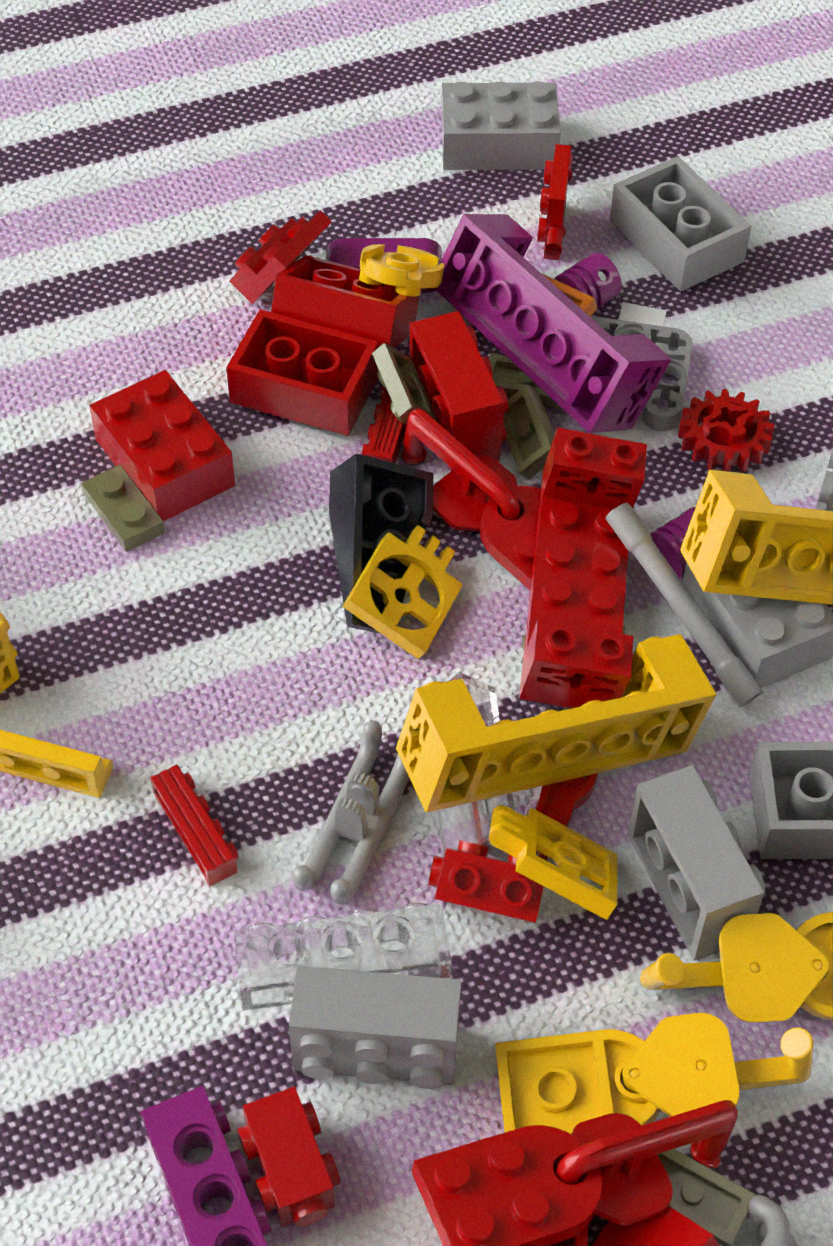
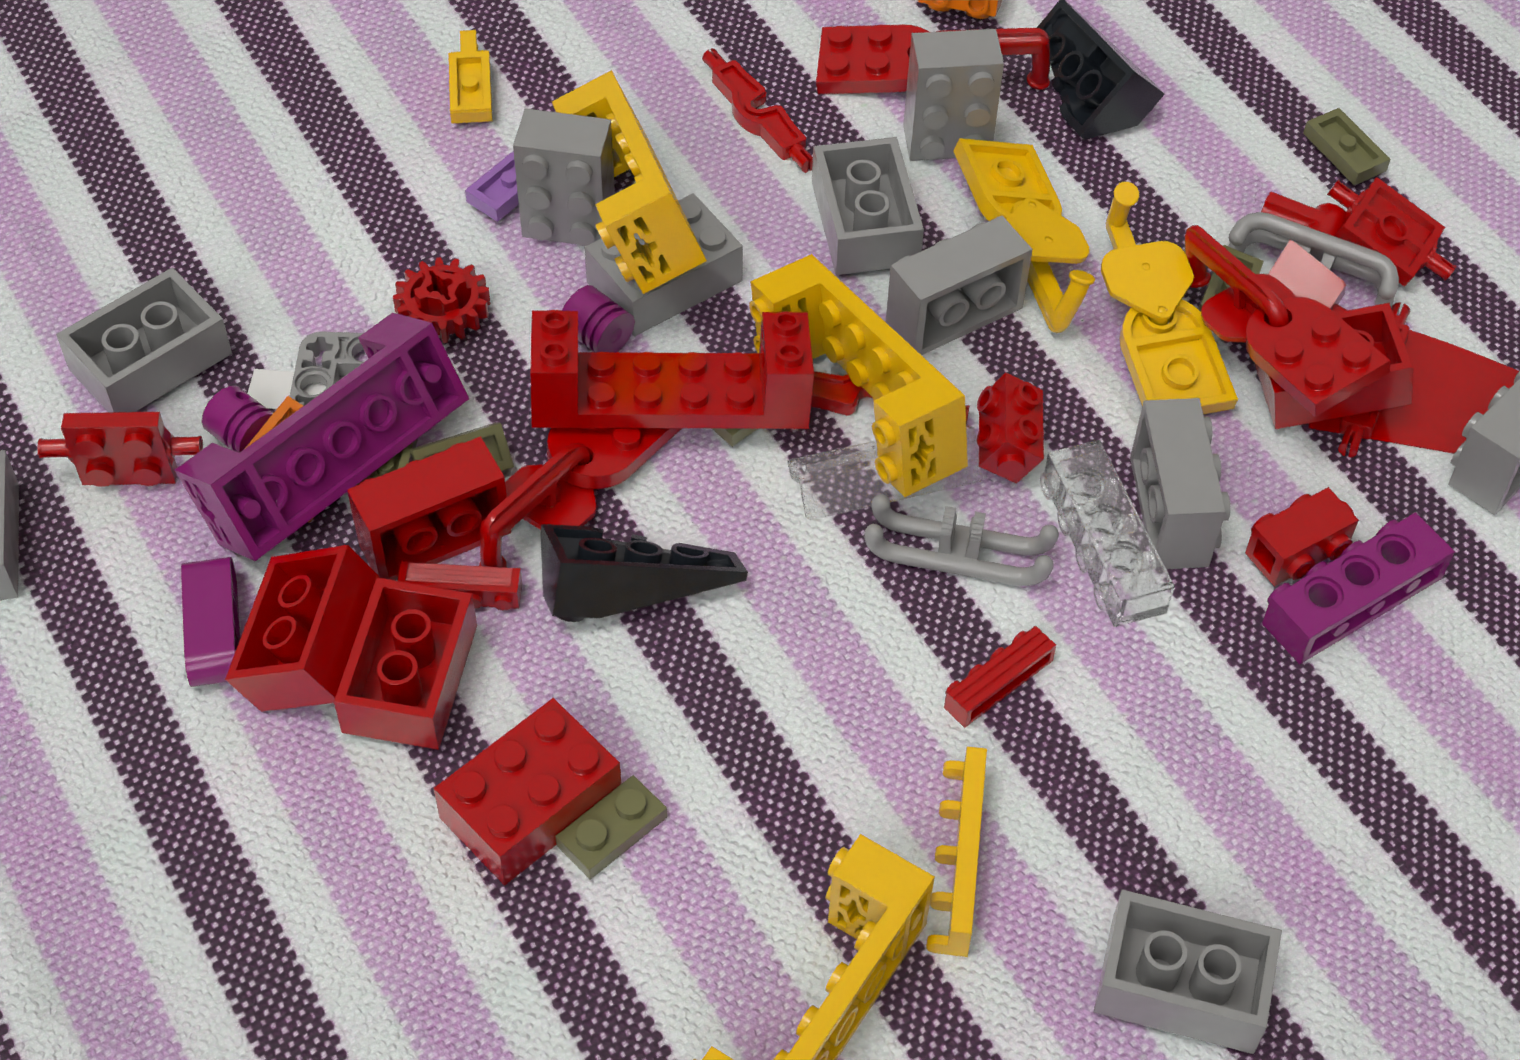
camera: 100 degrees left, 0 degrees up
(278, 251) = (221, 710): red plate -> none
(402, 382) = (416, 562): olive plate -> none
(406, 269) = (264, 565): yellow plate -> none
(420, 564) = (678, 543): yellow piece -> none
(535, 832) = (966, 363): yellow piece -> none
(727, 665) = (630, 331): light grey piece -> none

